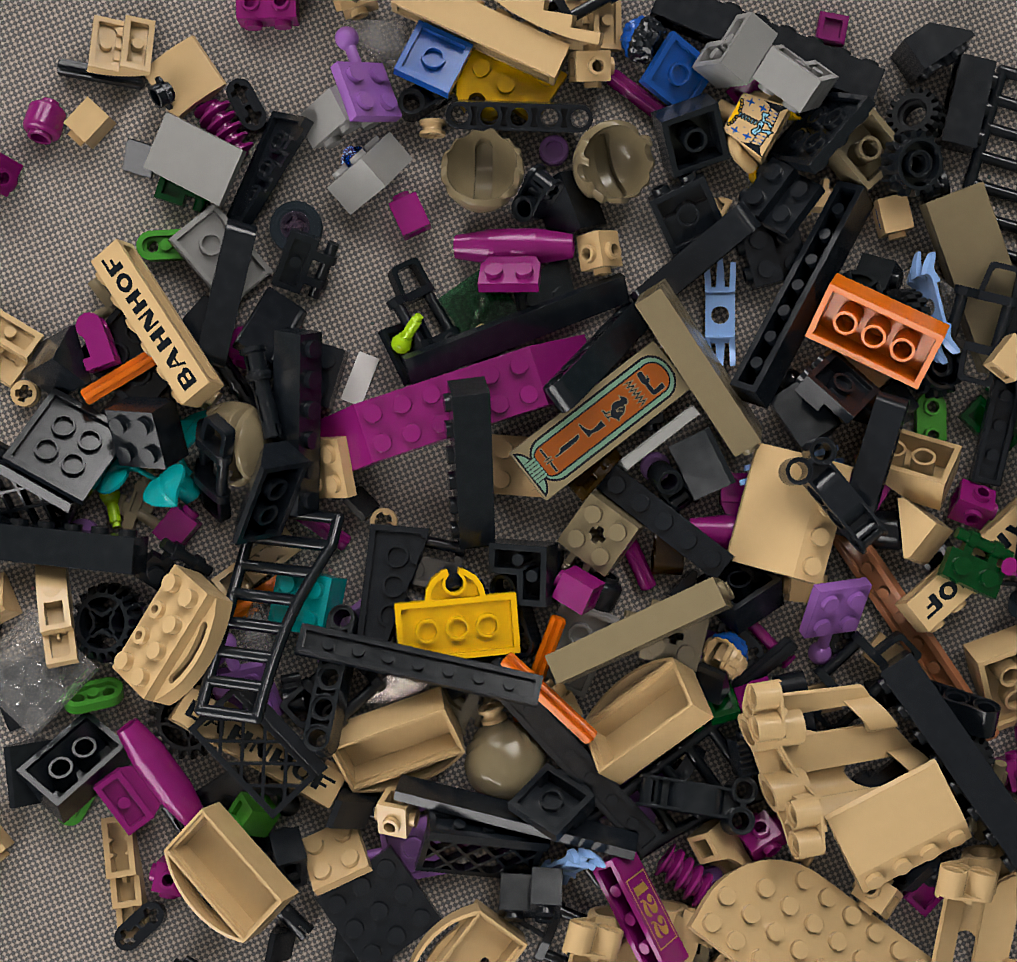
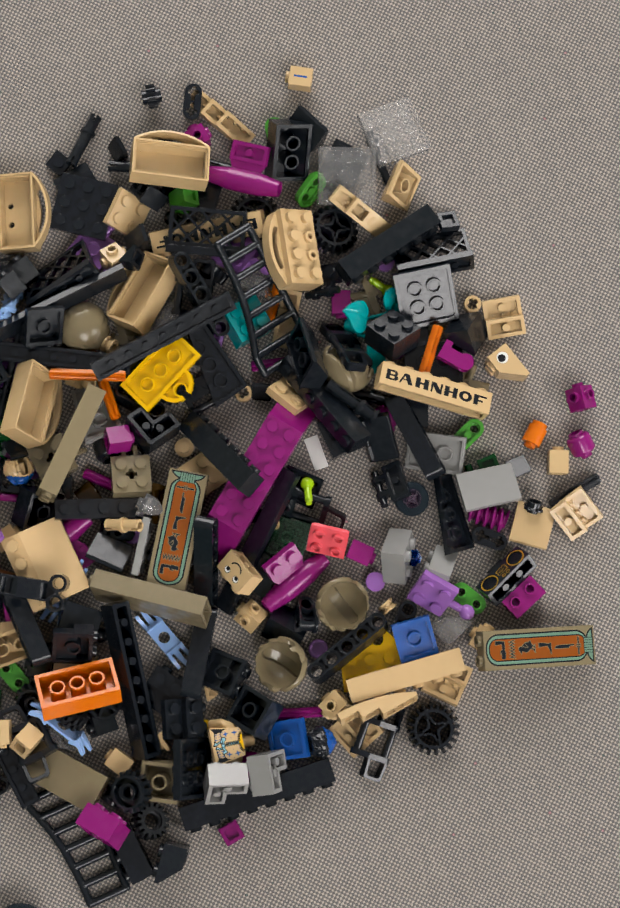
camera: 140 degrees right, 5 degrees down
(46, 285) = (505, 365): none -> tan slope
(88, 178) = (534, 434): none -> orange brick
(265, 43) = (506, 575): none -> black piece
(327, 56) = (469, 597): none -> bright green plate
(375, 793) = (133, 258): none -> black slope
(422, 170) = (375, 581): none -> medium lavender tile
(435, 258) = (327, 540): none -> coral bracket
(508, 516) = (184, 447): none -> tan plate
(570, 307) = (239, 572): none -> tan brick
(610, 477) = (148, 505): none -> clear plate
(658, 480) = (123, 525): none -> tan pin
(979, 149) = (103, 825): none -> magenta brick
(986, 323) = (26, 740): none -> tan brick

